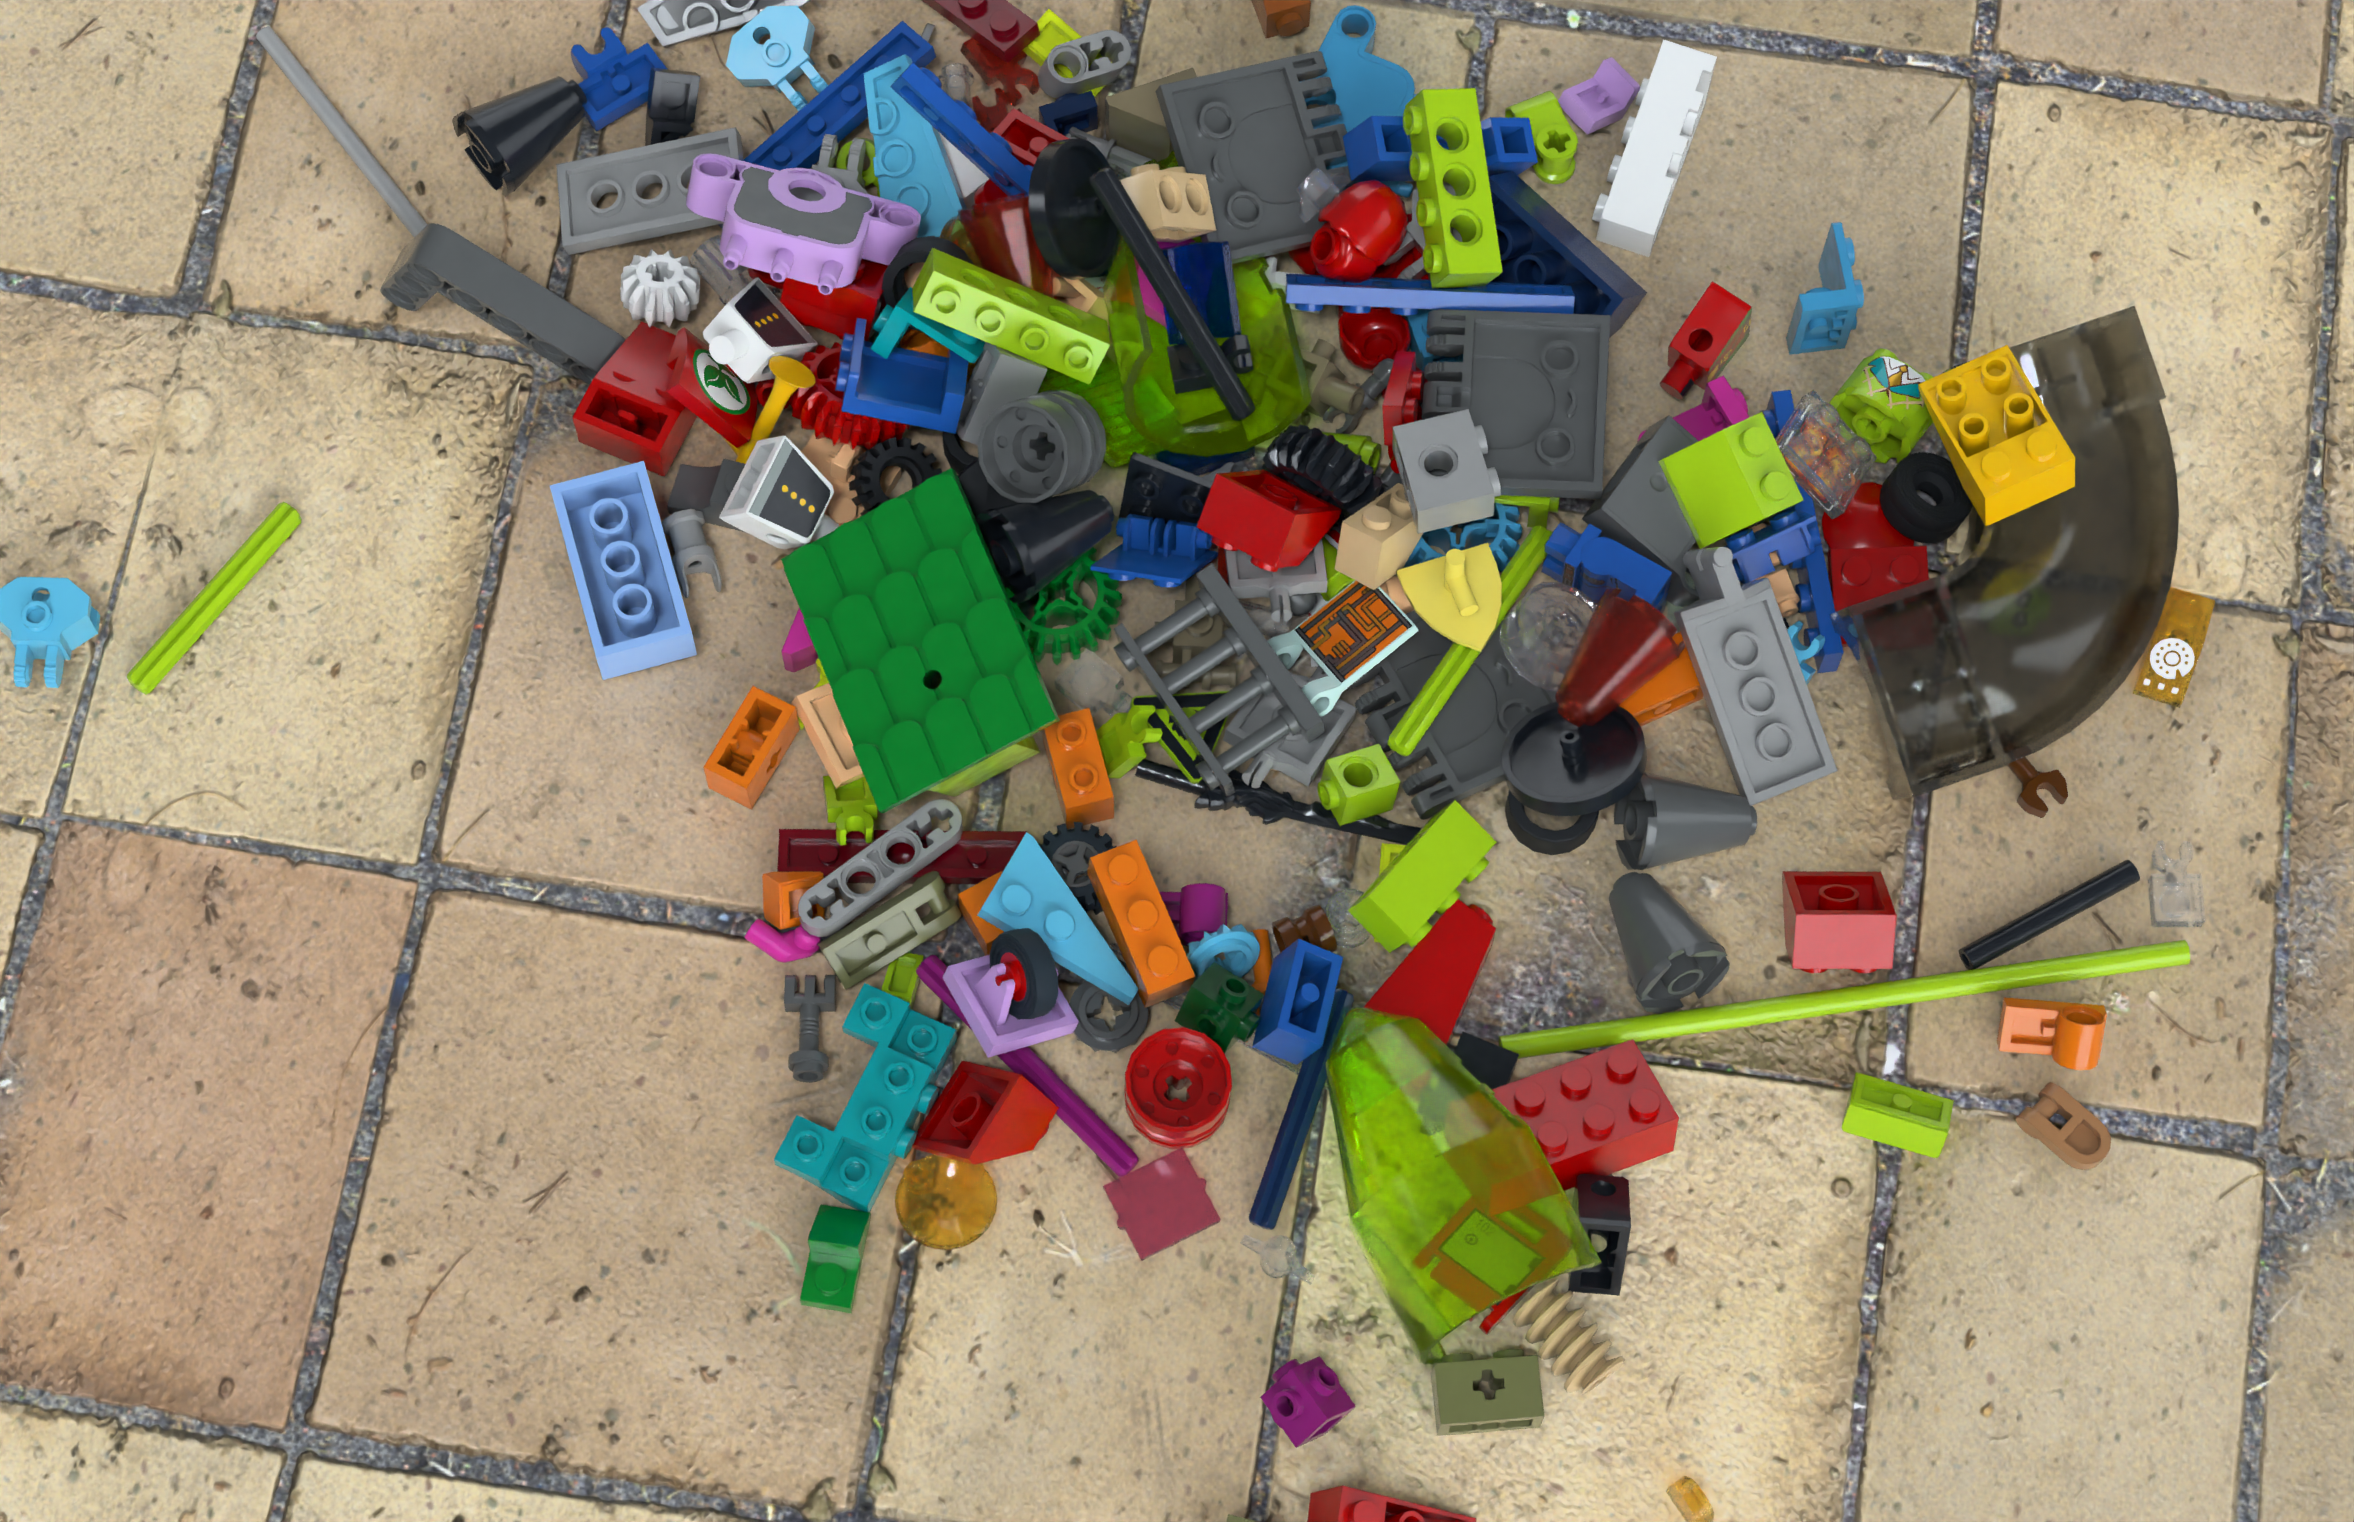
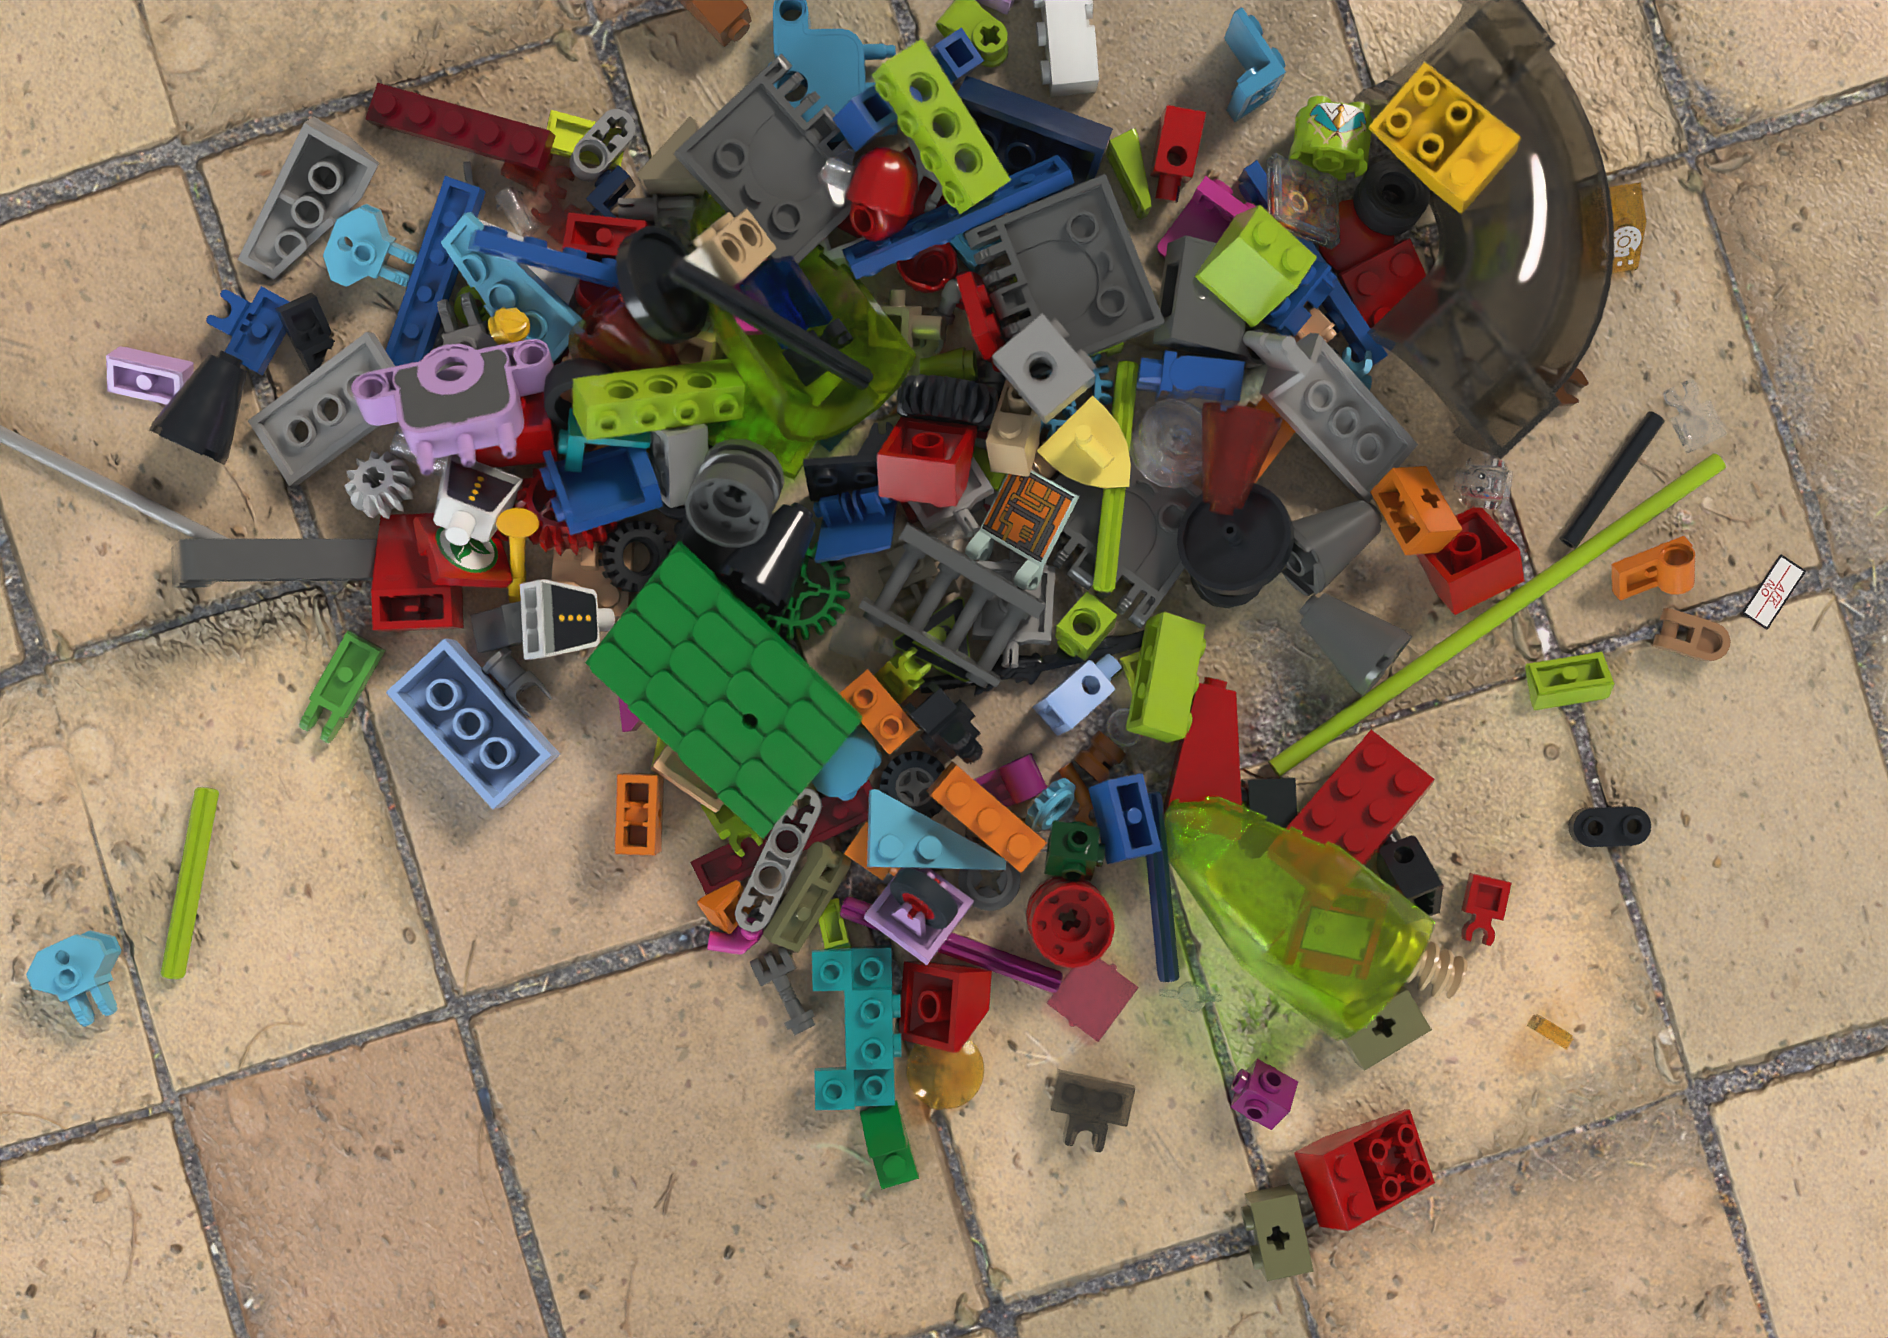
camera: 30 degrees left, 20 degrees up
(470, 74) = (146, 374): none -> lavender slope
(499, 471) = (342, 683): none -> bright green hinge
(890, 183) = (508, 326): none -> yellow plate
(1010, 802) = (849, 766): none -> dark azure dish
(1095, 1322) = (1090, 1105): none -> clear smoke plate
(1146, 807) = (947, 726): none -> black hinge
(1310, 851) = (1070, 703): none -> light blue torso
(1646, 335) = (1128, 165): none -> lime slope
(1681, 1313) = (1485, 900): none -> red plate
(1797, 828) = (1415, 510): none -> orange brick
(1872, 1305) = (1611, 826): none -> black plate
(1894, 843) = (1484, 482): none -> clear head
(2191, 1131) = (1774, 591): none -> white sticker

